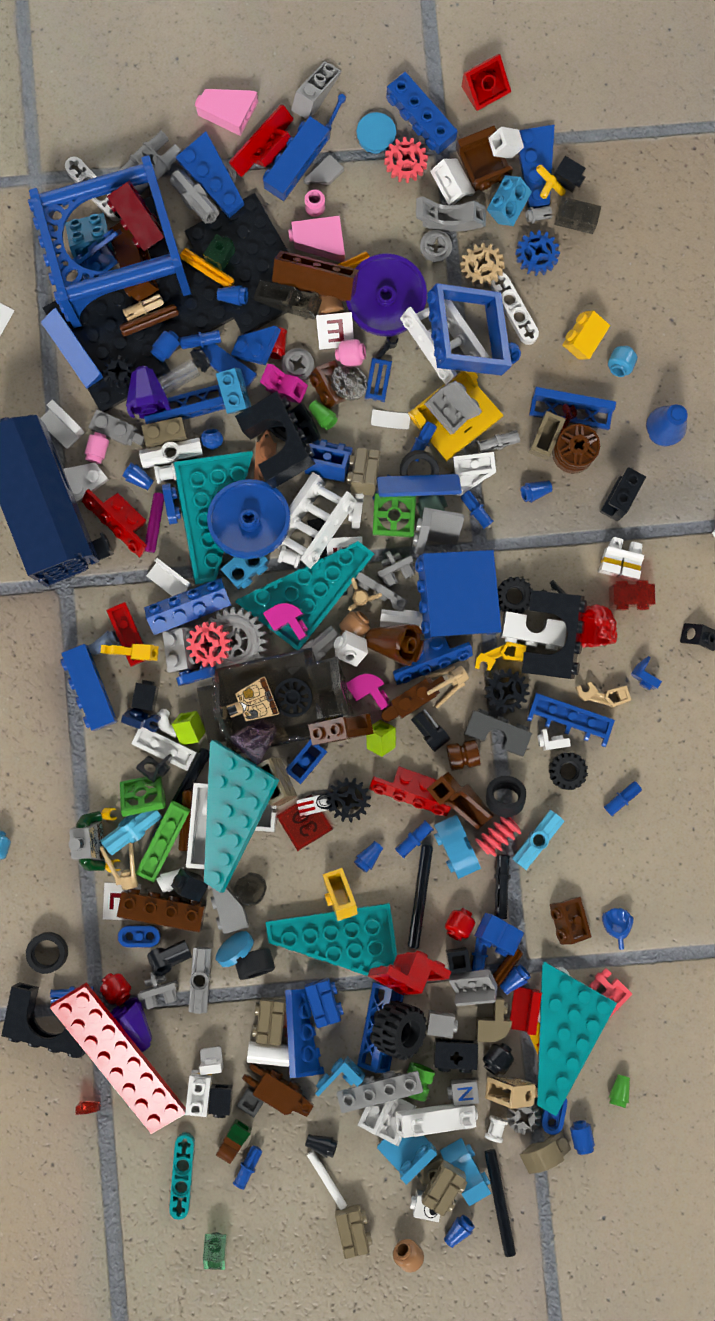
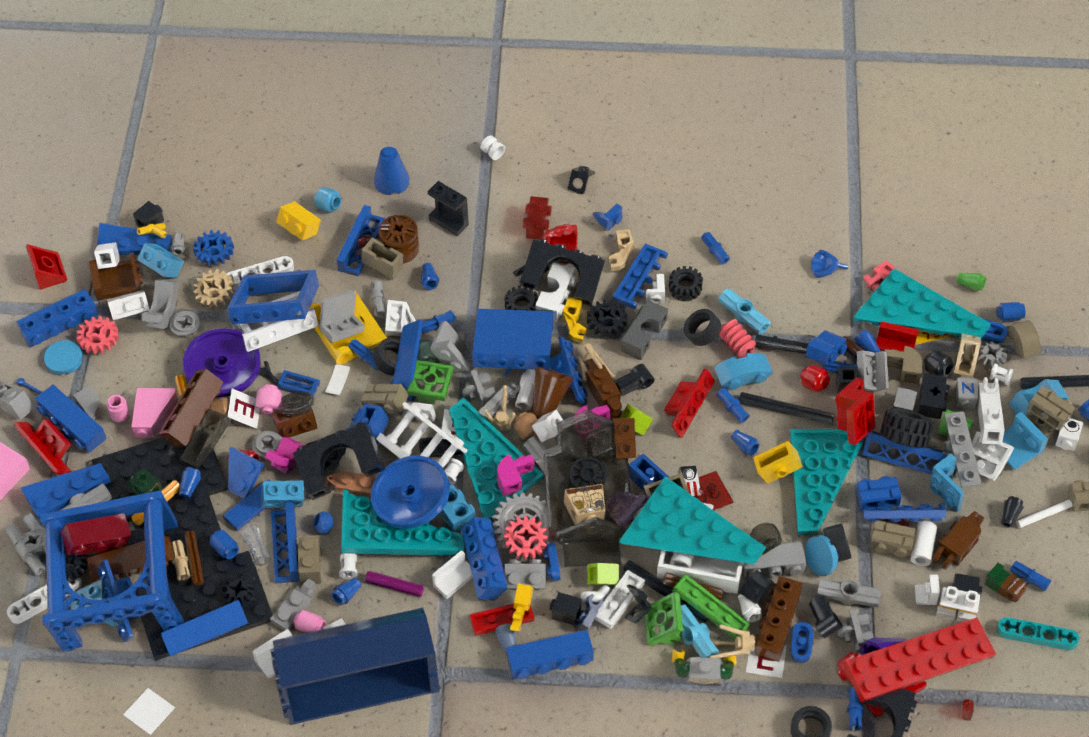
camera: 75 degrees left, 30 degrees down
(119, 518) = (392, 603): red bracket -> none
(145, 394) = (268, 564): dark purple cone -> none
(173, 512) = (381, 565): blue plate -> none
(184, 450) = (330, 567): white piece -> none
(200, 339) = (225, 516): blue axle -> none
(200, 360) = (242, 520): black plant -> none
(250, 1103) = (969, 566): dark grey tile -> none
(323, 415) = (321, 429): bright green cone -> none
(351, 790) = (690, 451): black gear -> none
(461, 799) = (703, 358): reddish brown arch -> none
(463, 755) = (660, 355): reddish brown wheel -> none
(570, 921) = (819, 299): reddish brown bracket -> none
(577, 215) = (188, 214): clear smoke brick -> none
(622, 562) = (506, 222): white hips -> none

